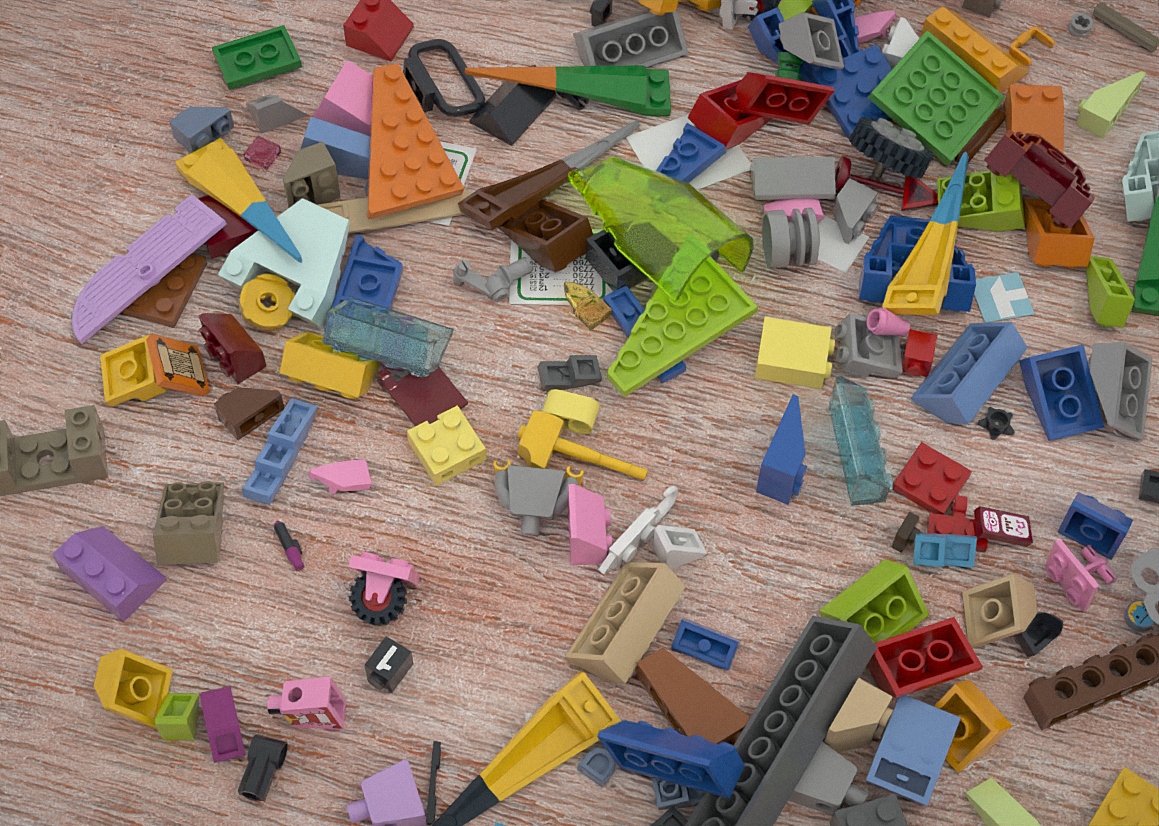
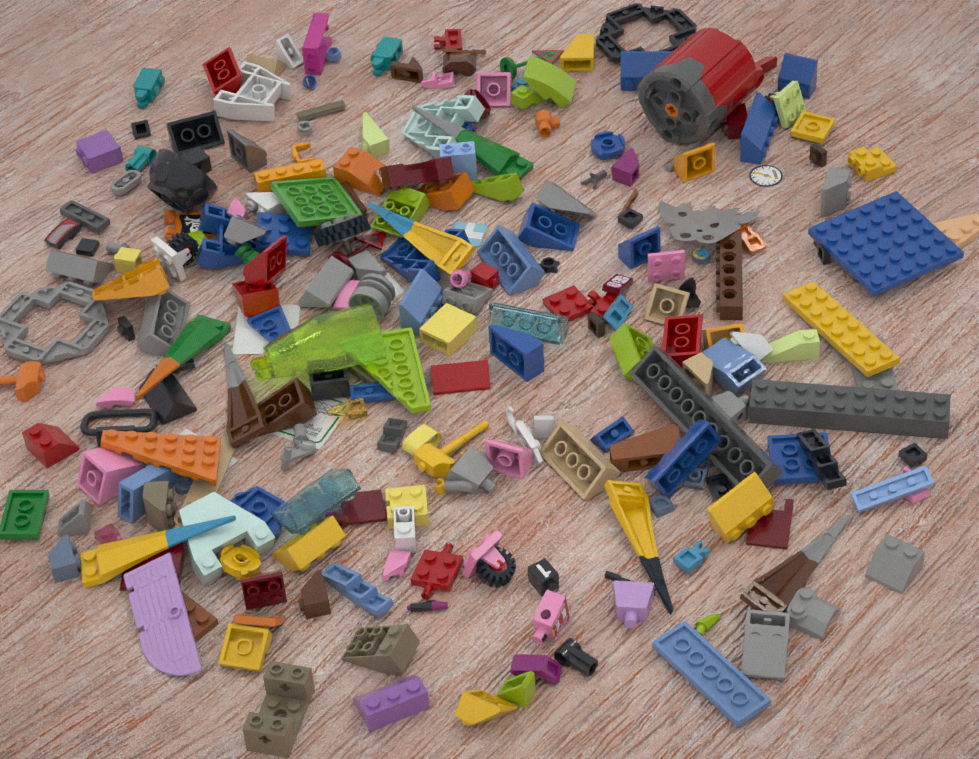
camera: 60 degrees left, 15 degrees down
(353, 529) = (437, 570): none -> red plate
(396, 459) = (405, 528): none -> white slope
(484, 54) = (119, 396): none -> bright pink slope
(717, 404) = (460, 377): none -> red slope
(815, 295) = (420, 302): none -> medium blue slope
(971, 763) = (752, 342): none -> white slope
(1118, 221) = (462, 157): none -> light blue piece

